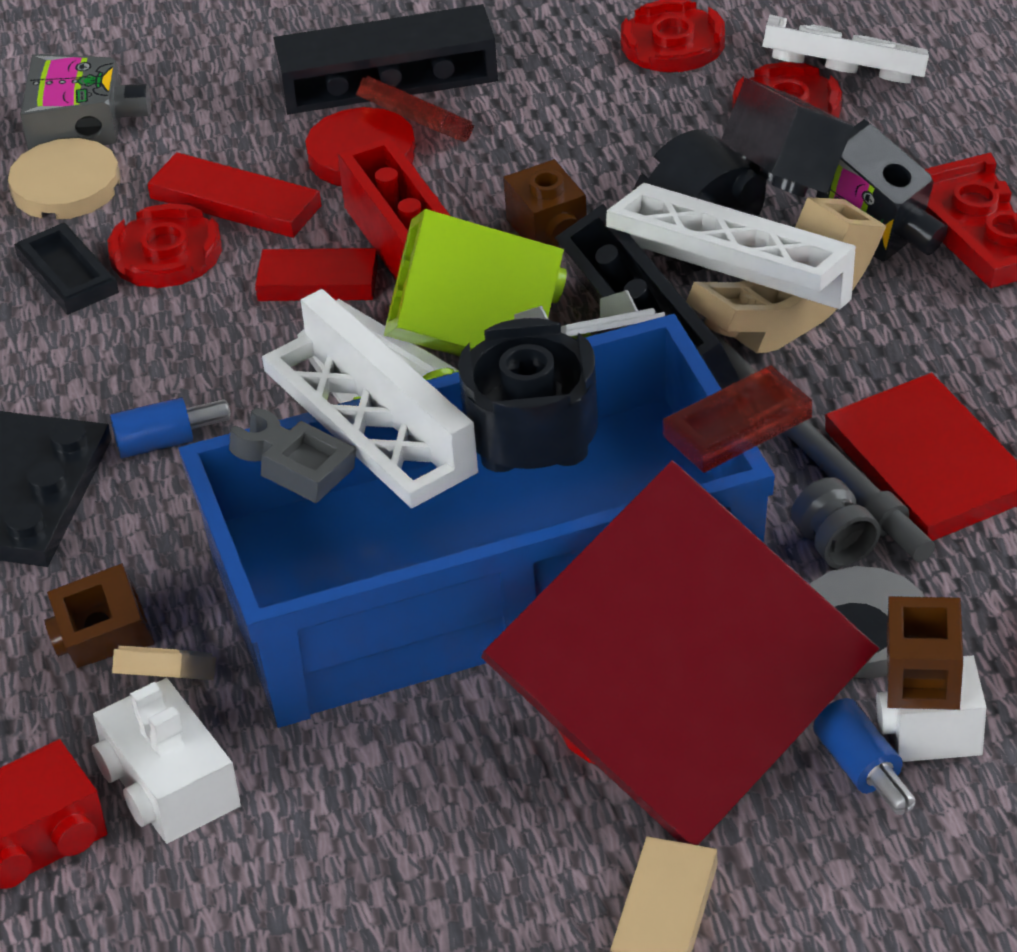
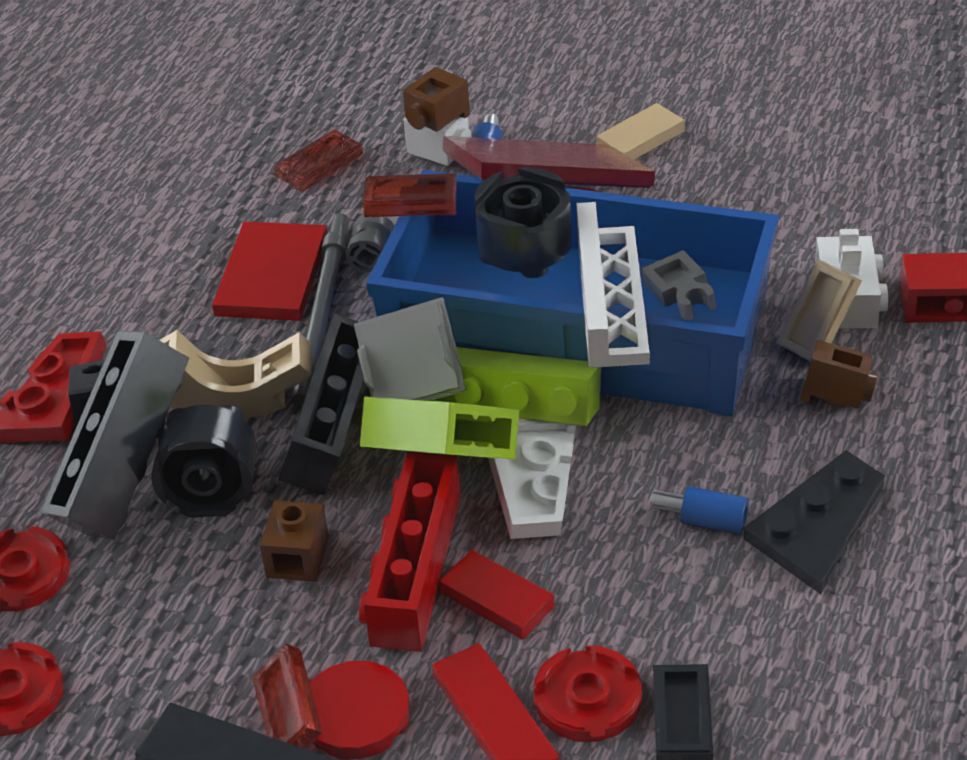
camera: 145 degrees left, 0 degrees up
(737, 244) = (241, 378): white fence -> none

